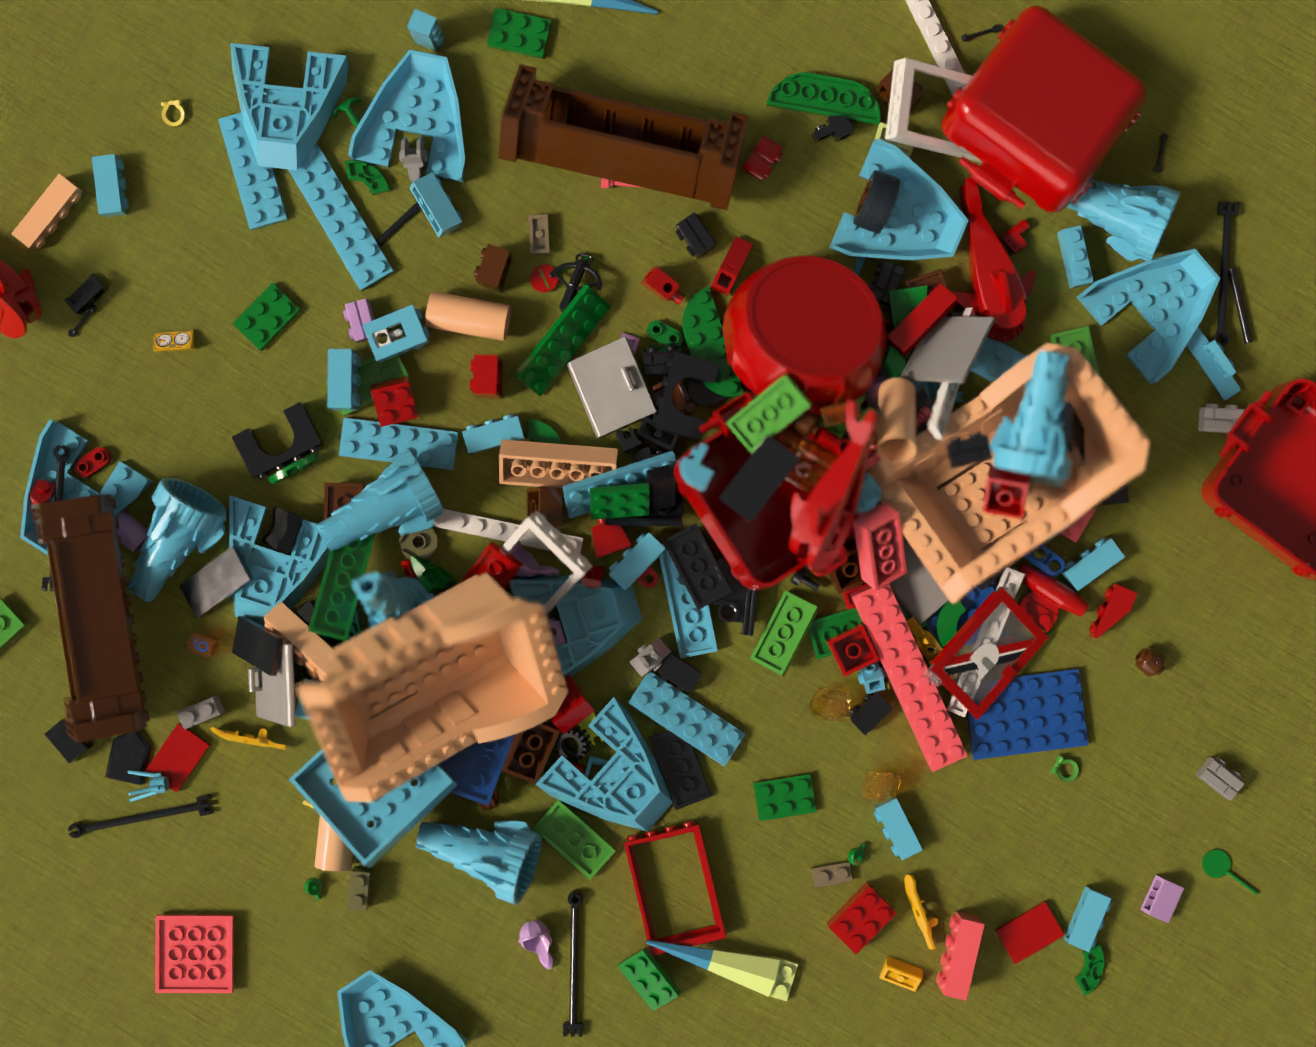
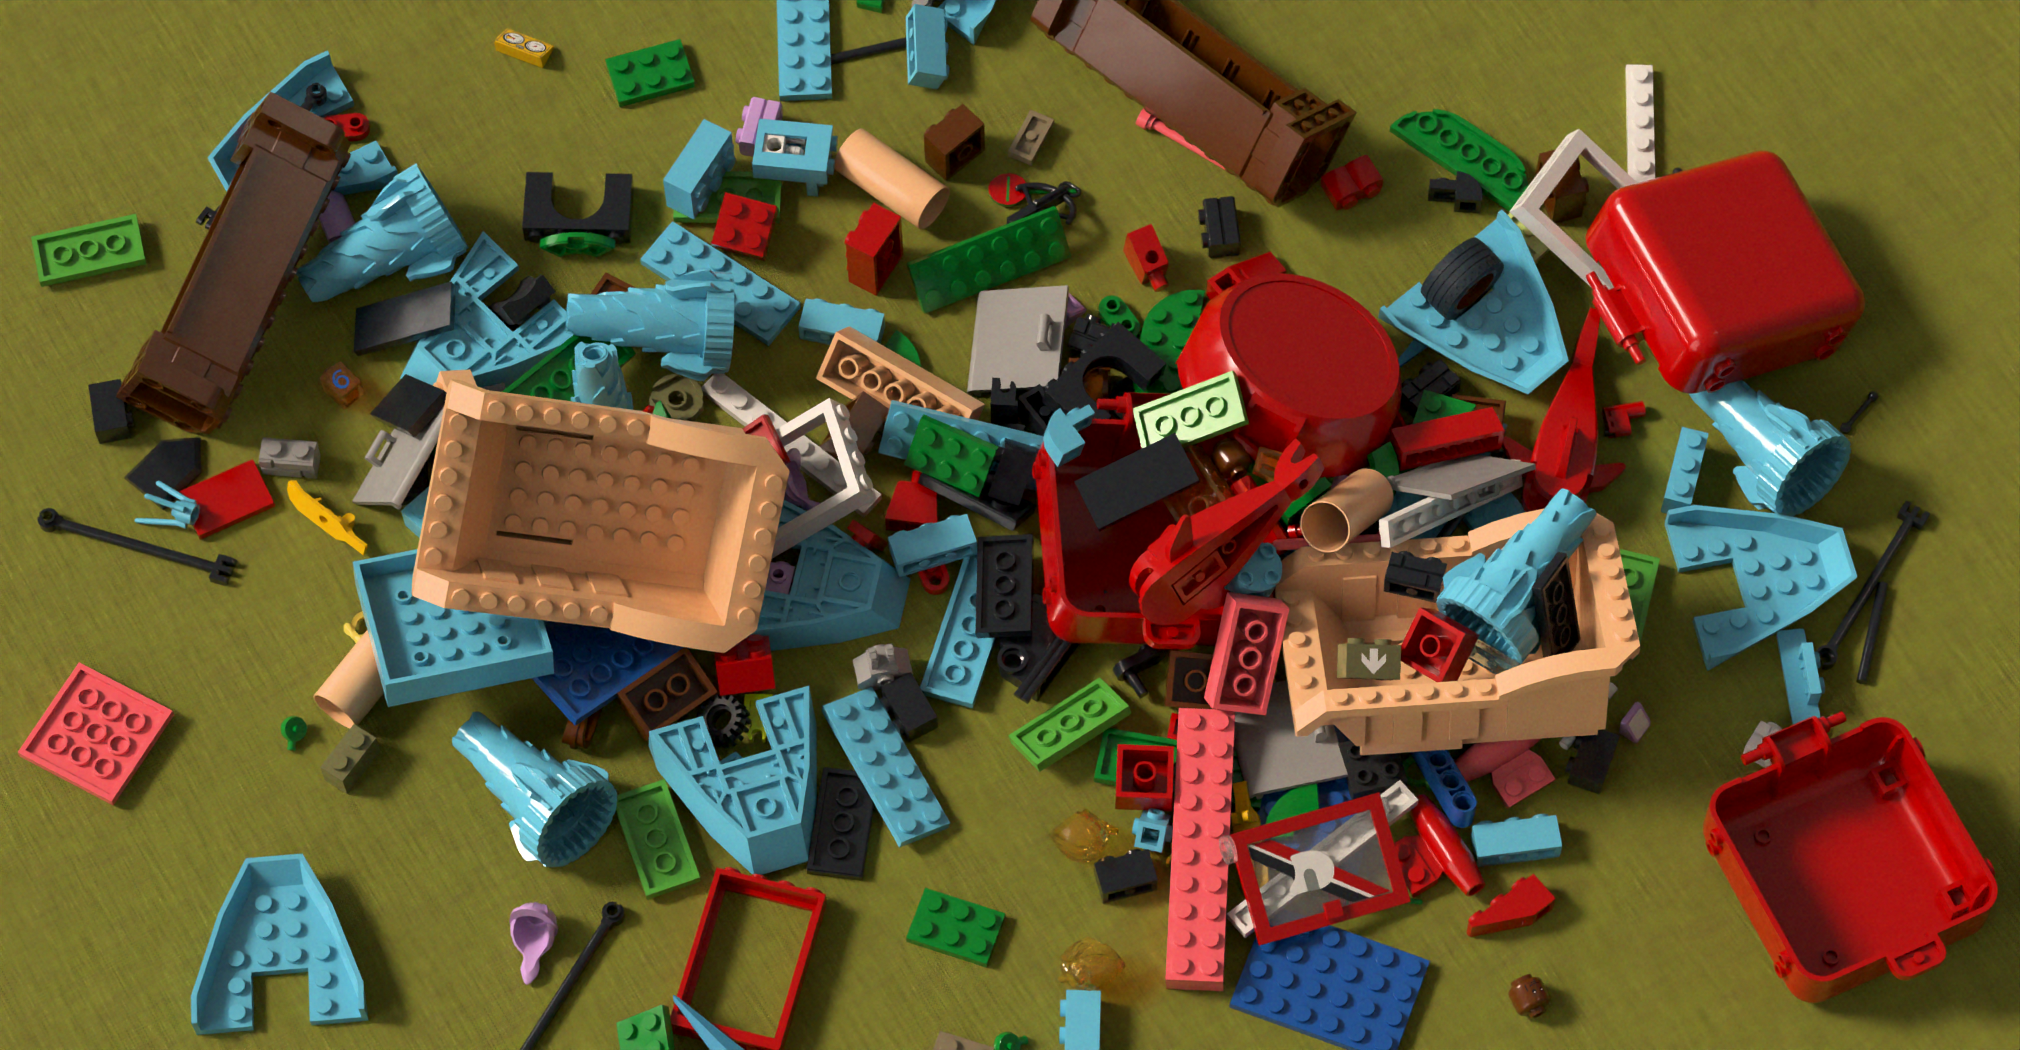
camera: 30 degrees right, 25 degrees down
(969, 525) = (1369, 661): none -> olive brick

